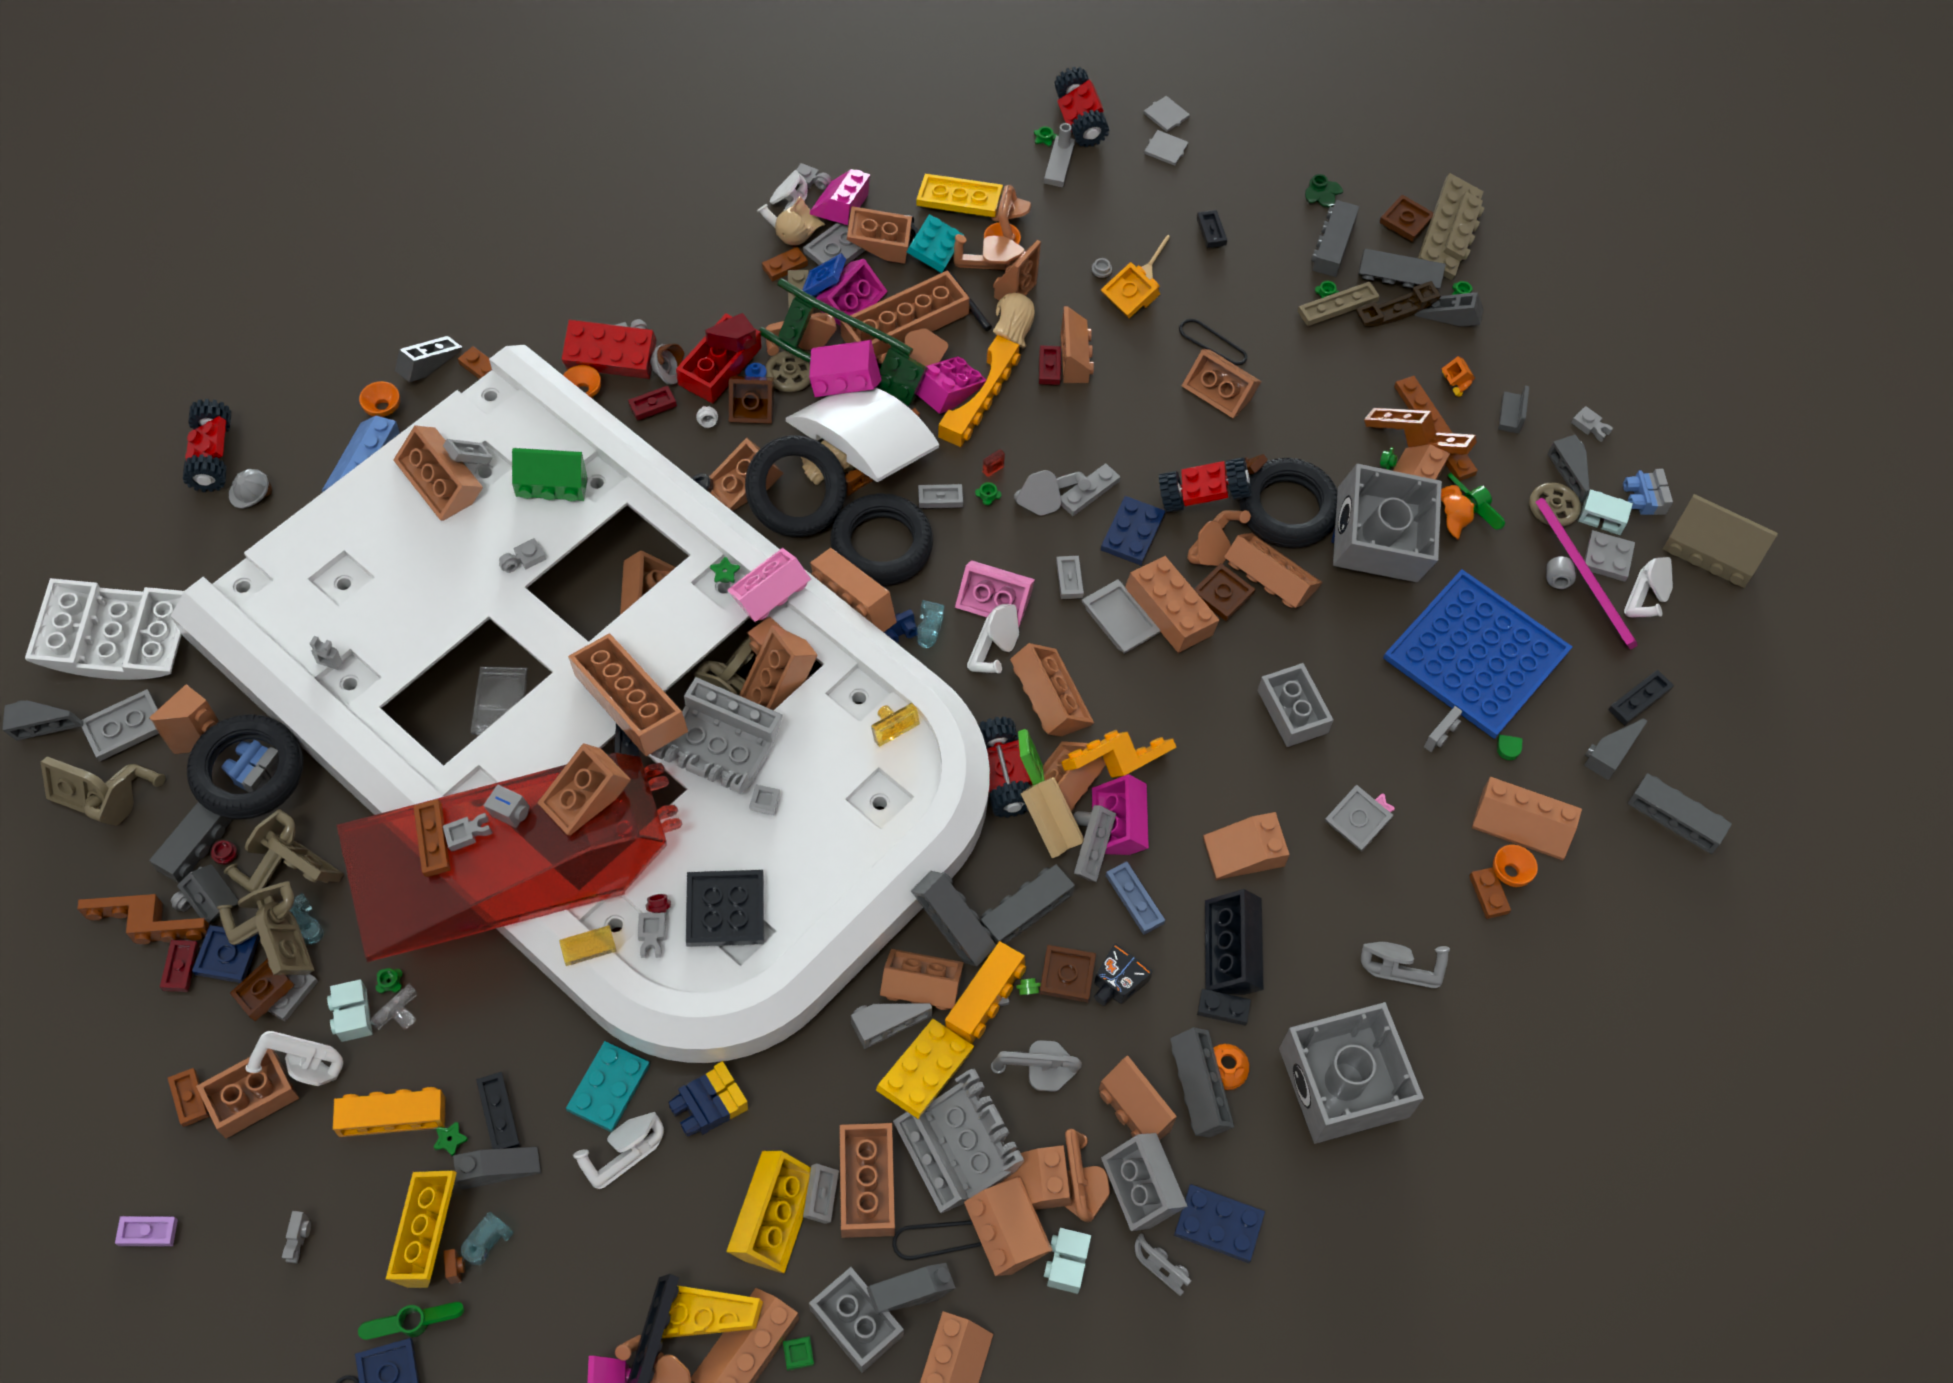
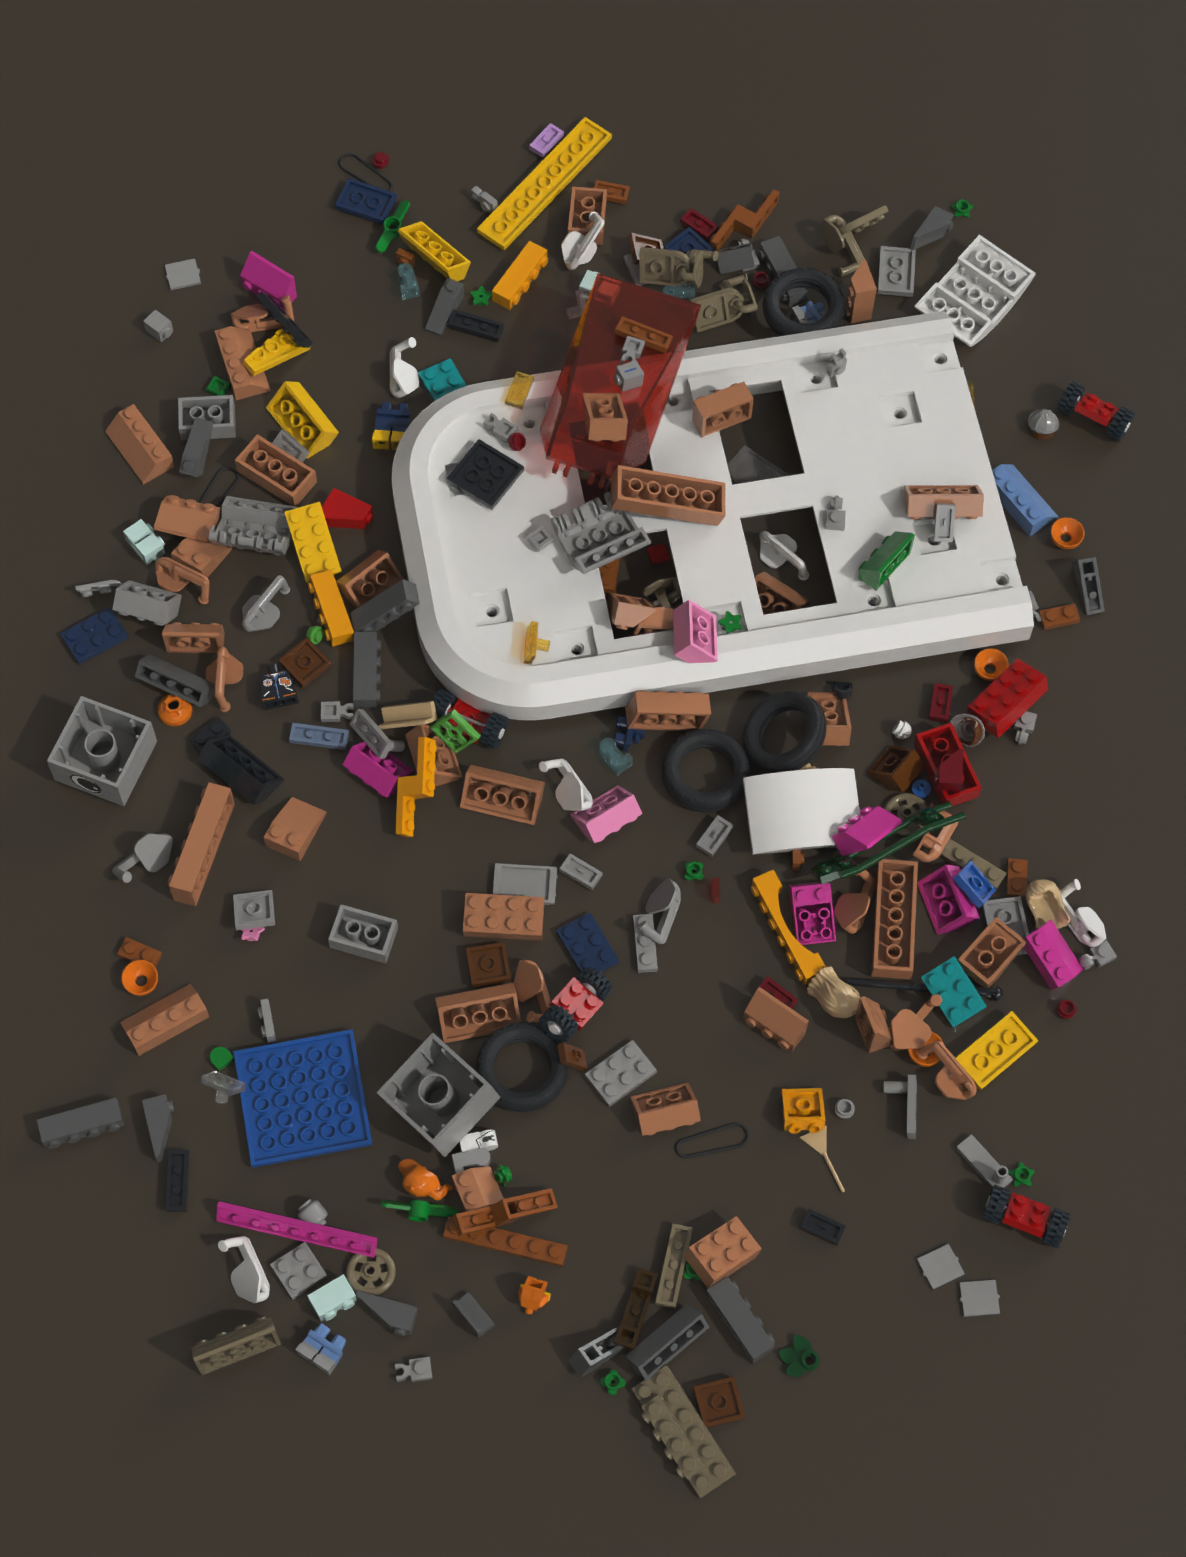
camera: 130 degrees right, 5 degrees up
(219, 1185) = (544, 183): none -> yellow plate
(469, 720) = (722, 409): none -> nougat brick
(583, 621) = (778, 549): none -> white piece
(857, 1068) = (346, 511): none -> red slope
(878, 172) = (1066, 1009): none -> dark red plate
(885, 1020) = (362, 543): light grey slope -> none
(1046, 231) = (907, 1087): none -> light grey piece
(1096, 904) = (333, 711): none -> light grey plate
(1147, 1046) = (224, 671): none -> nougat piece
(1220, 435) = (620, 1073): none -> light grey plate
(1300, 271) = (722, 1252): none -> nougat brick
(1345, 909) = (201, 844): none -> nougat brick
(1533, 717) = (224, 1085): none -> clear tile

